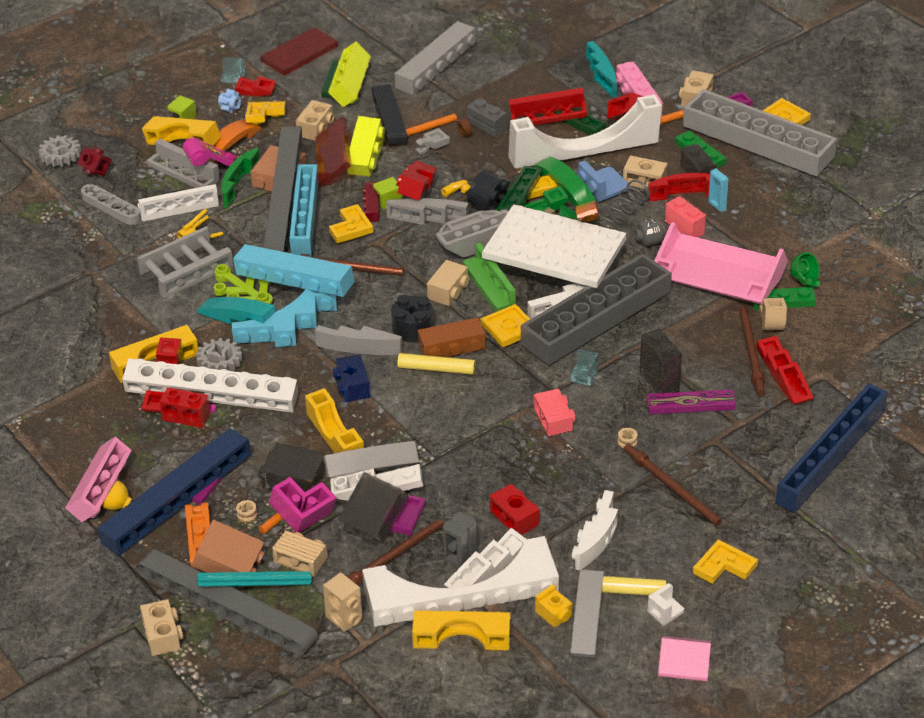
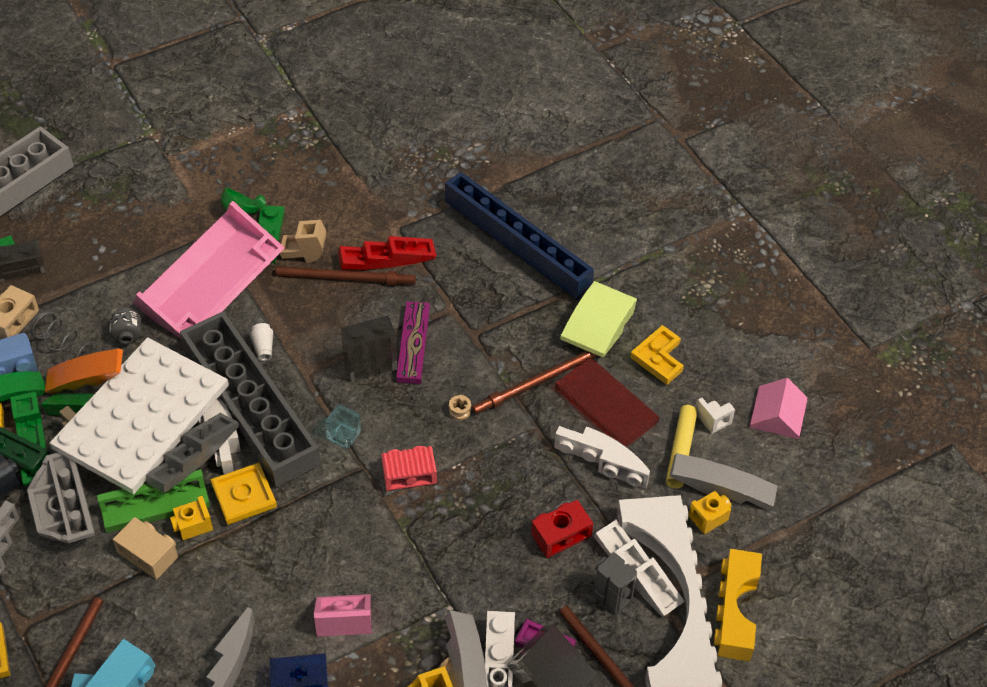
camera: 85 degrees left, 10 degrees up
(410, 315) = (206, 594): black brick -> none
(411, 393) = (343, 615): none -> bright pink slope
(435, 363) = (291, 581): light yellow piece -> none
(452, 338) = (256, 557): dark orange brick -> none
(475, 298) = (191, 519): none -> yellow brick
(534, 283) = (195, 450): none -> dark grey slope
(660, 533) = (607, 402): none -> clear red tile
(663, 310) = (262, 340): none -> white cone
(678, 184) = (54, 259): red slope -> none
(686, 217) = (111, 289): coral brick -> none
(718, 190) = (81, 247): medium azure tile -> none
(749, 514) = (599, 319): none -> yellowish green slope

